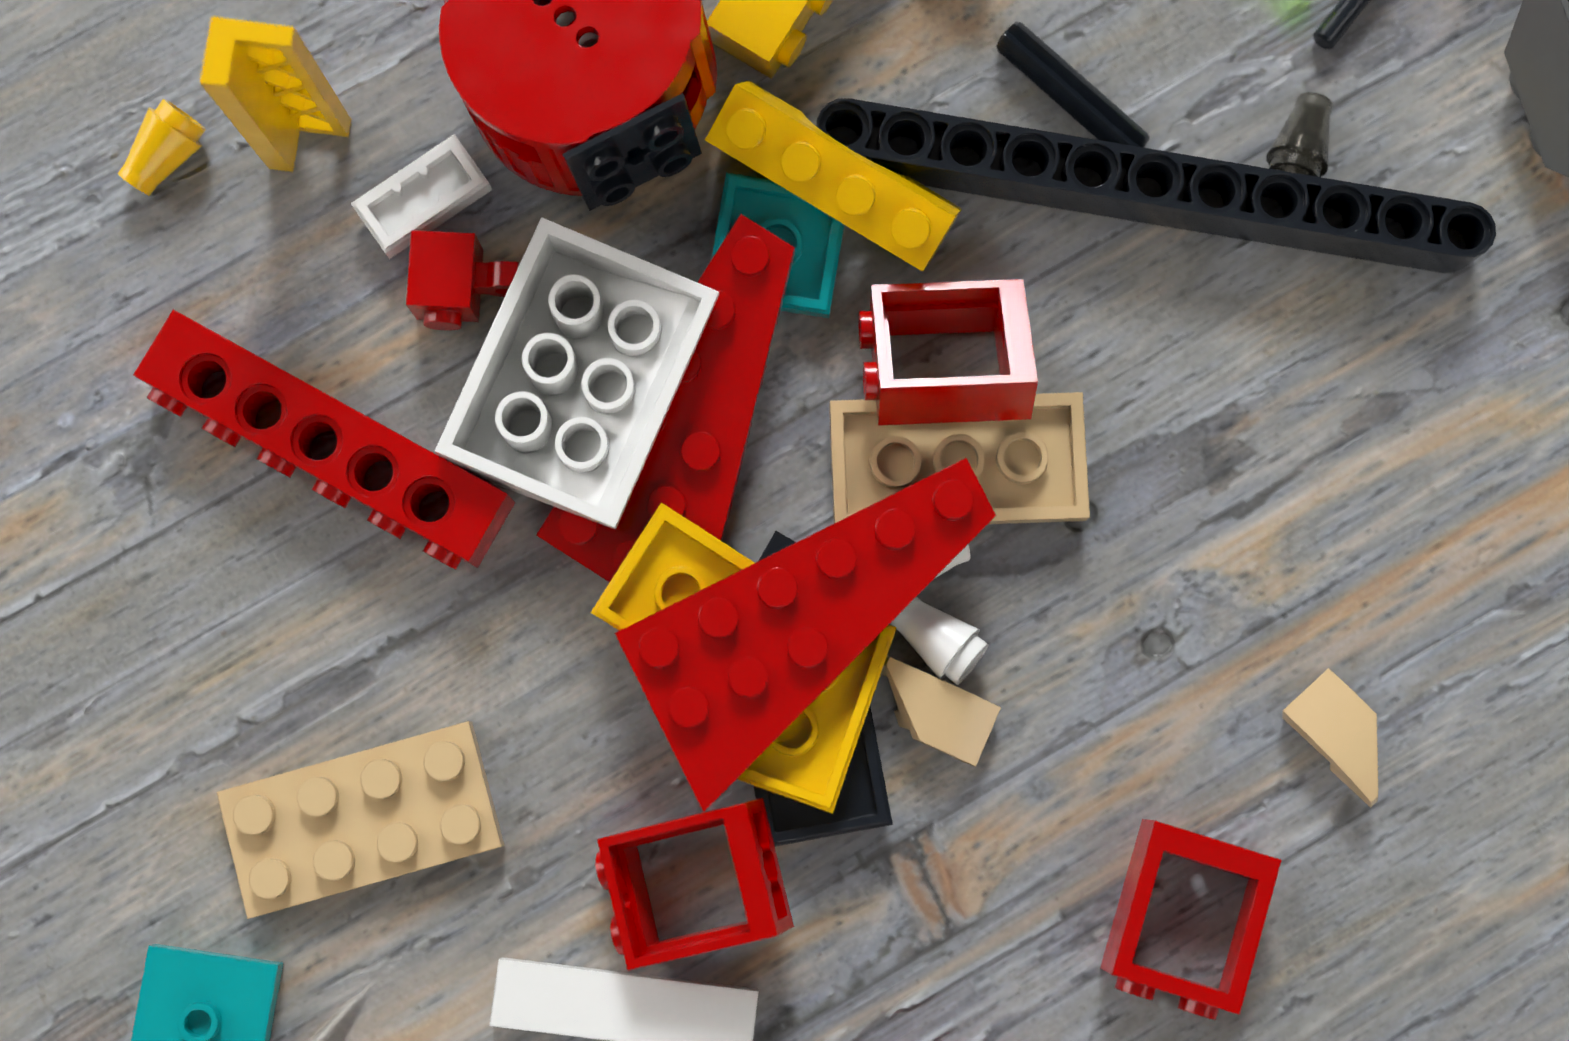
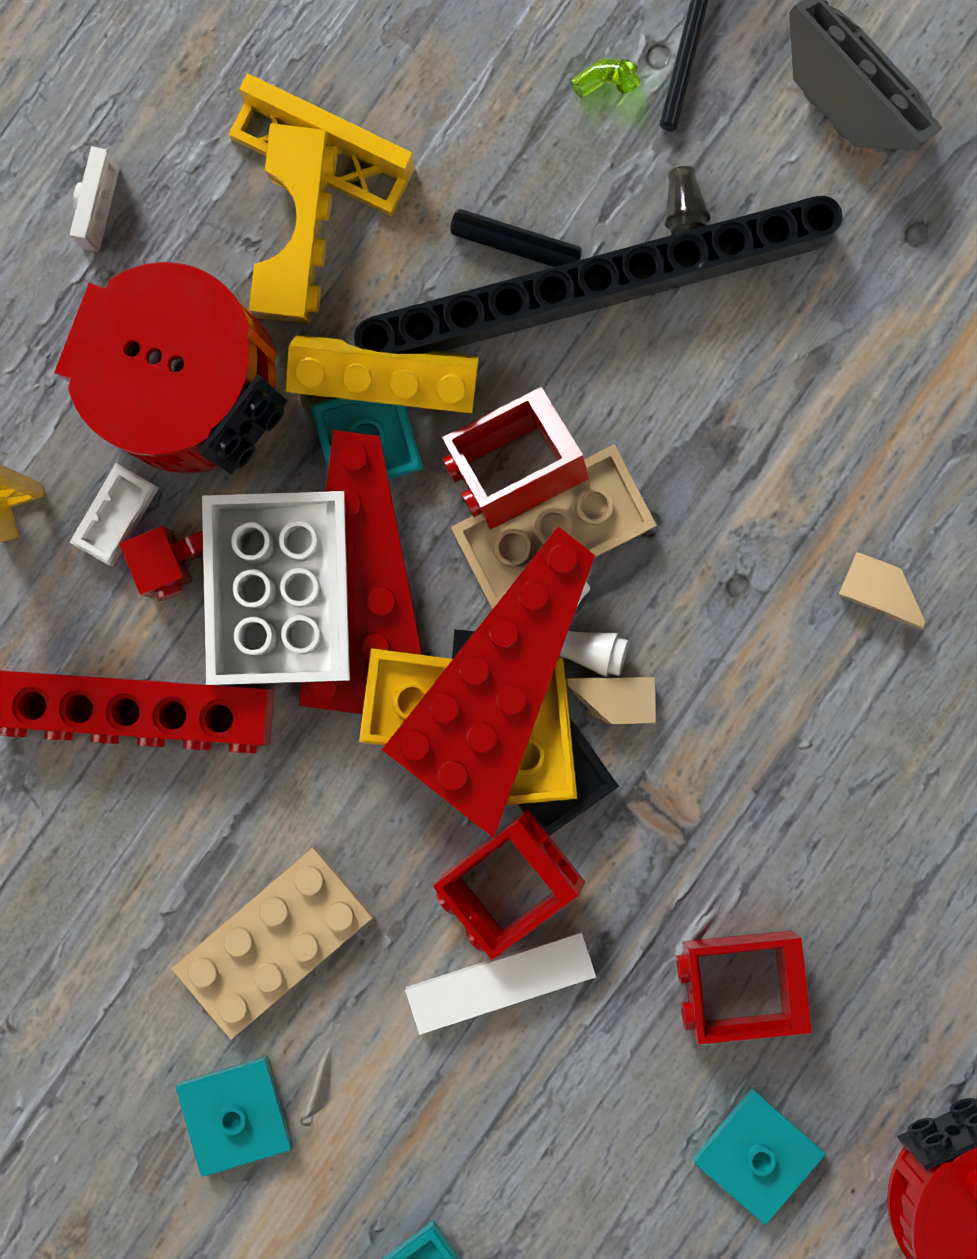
camera: 15 degrees left, 5 degrees up
(1143, 981) = (826, 811): red window -> none

